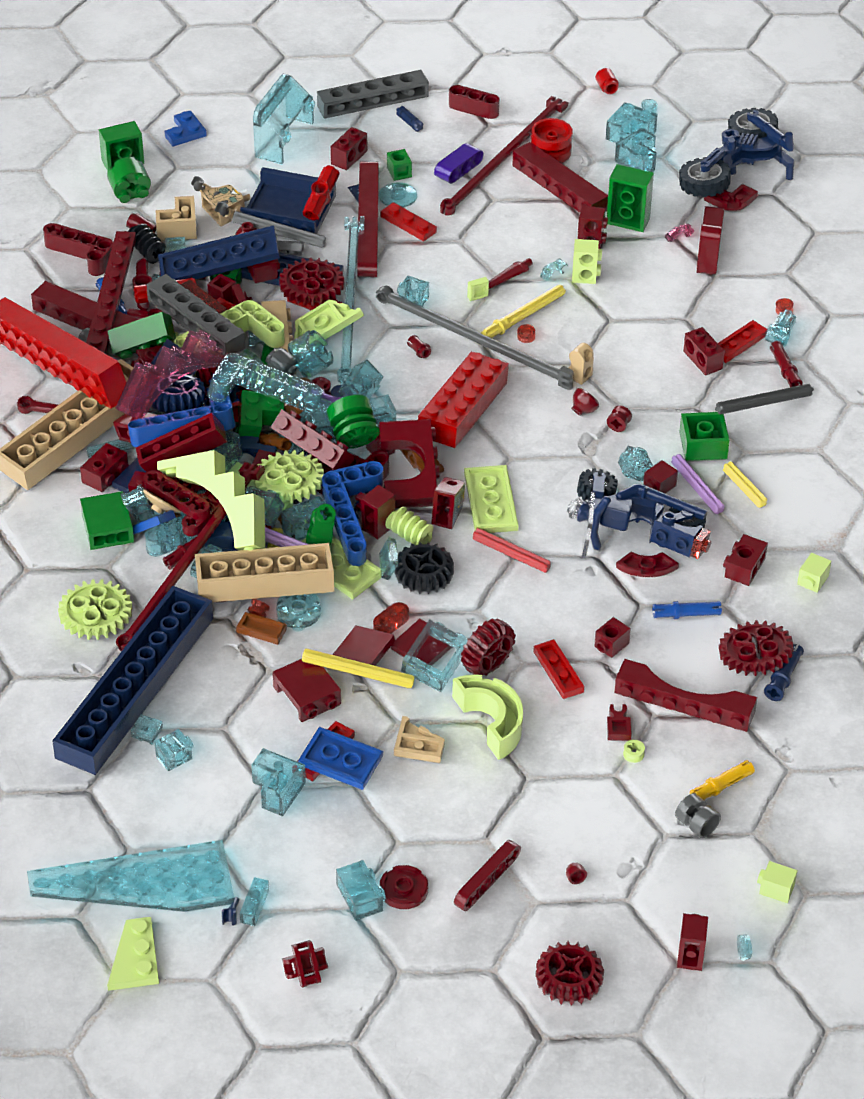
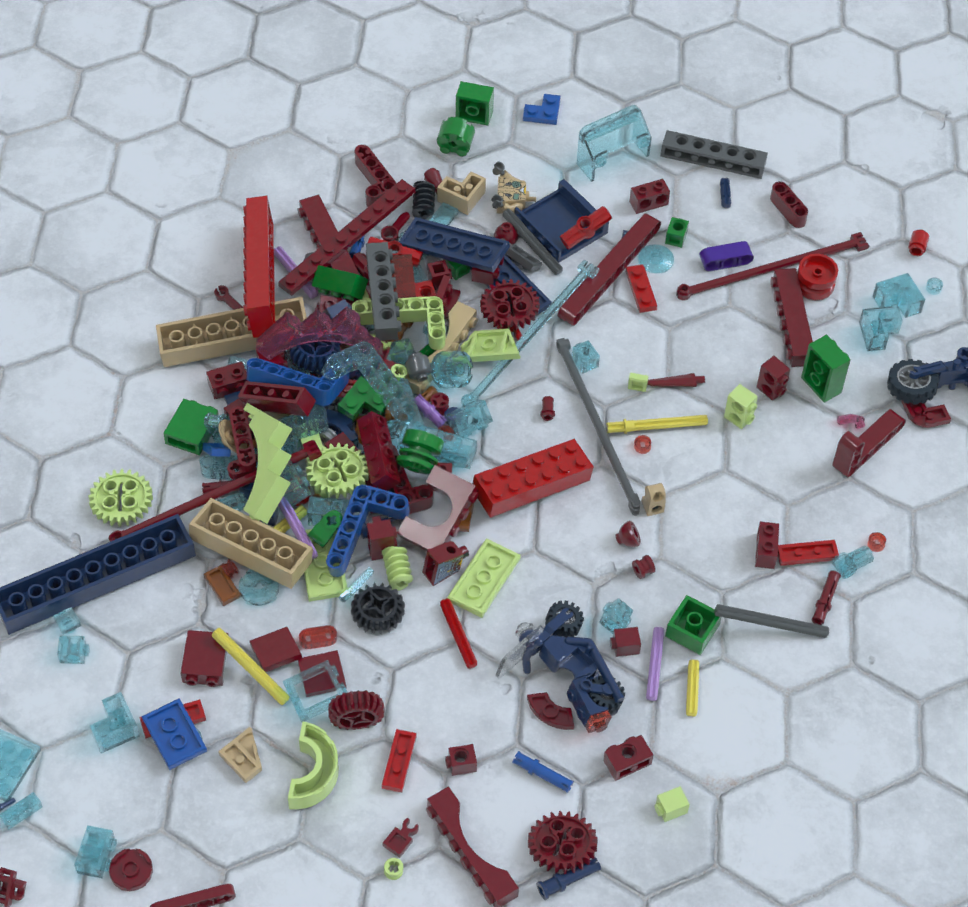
camera: 35 degrees right, 10 degrees up
(549, 269) = (713, 395): clear light blue arm -> none

